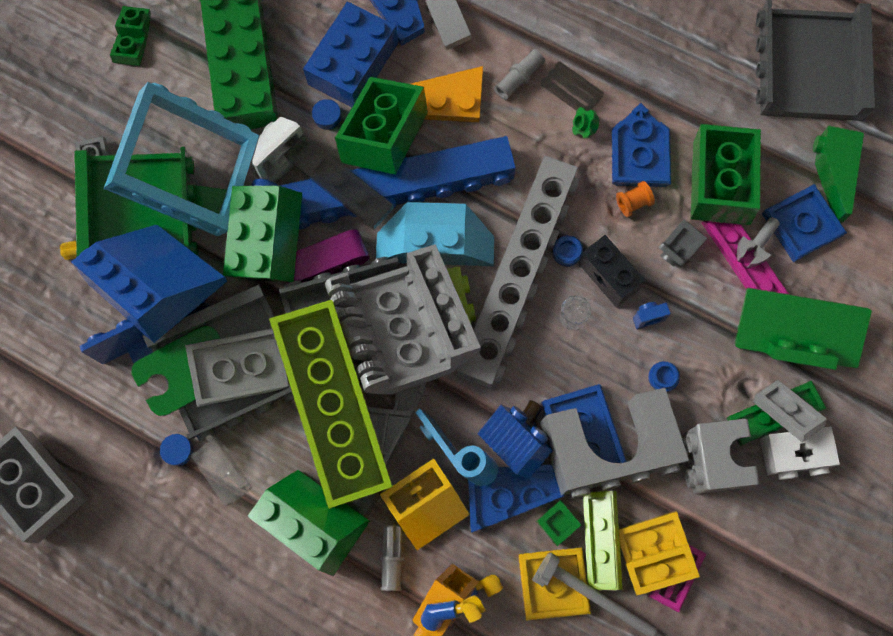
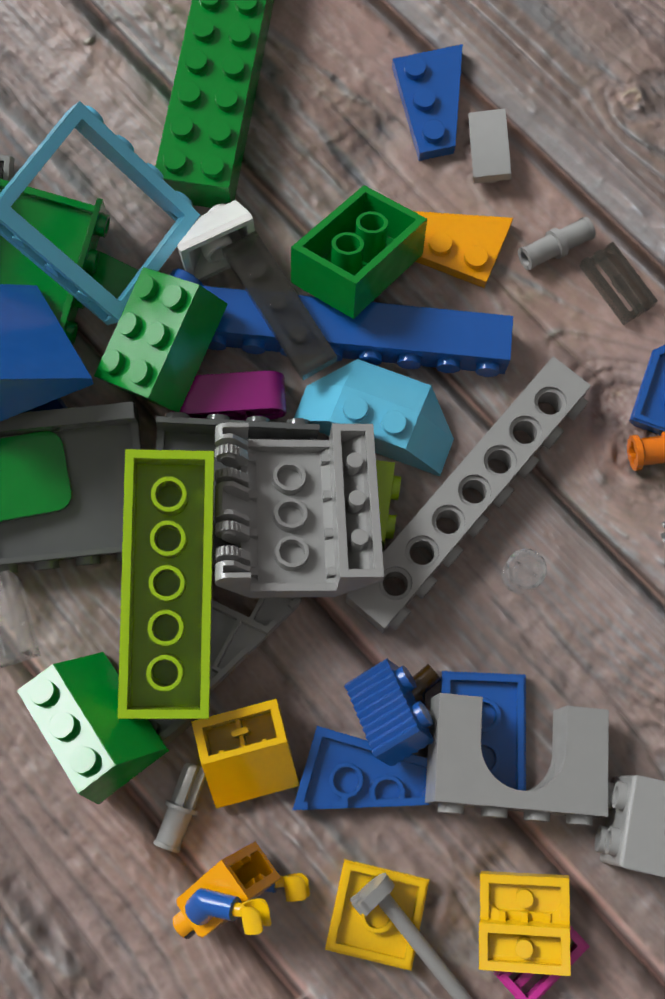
camera: 15 degrees right, 0 degrees up
(132, 35) = (92, 41): green slope -> none
(236, 367) = (66, 496): light grey tile -> none
(326, 114) = (295, 216): blue tile -> none
(350, 54) = (351, 147): blue brick -> none
(469, 462) = (319, 719): dark azure door -> none
(558, 523) = (409, 837): green plate -> none
(567, 251) = (541, 488): blue tile -> none
(585, 123) = (620, 332): green plate -> none
(602, 540) = (459, 881): lime tile -> none
(611, 271) = (589, 533): black brick -> none
(651, 314) = (622, 607): blue plate -> none
(664, 376) = (612, 693): blue plate -> none

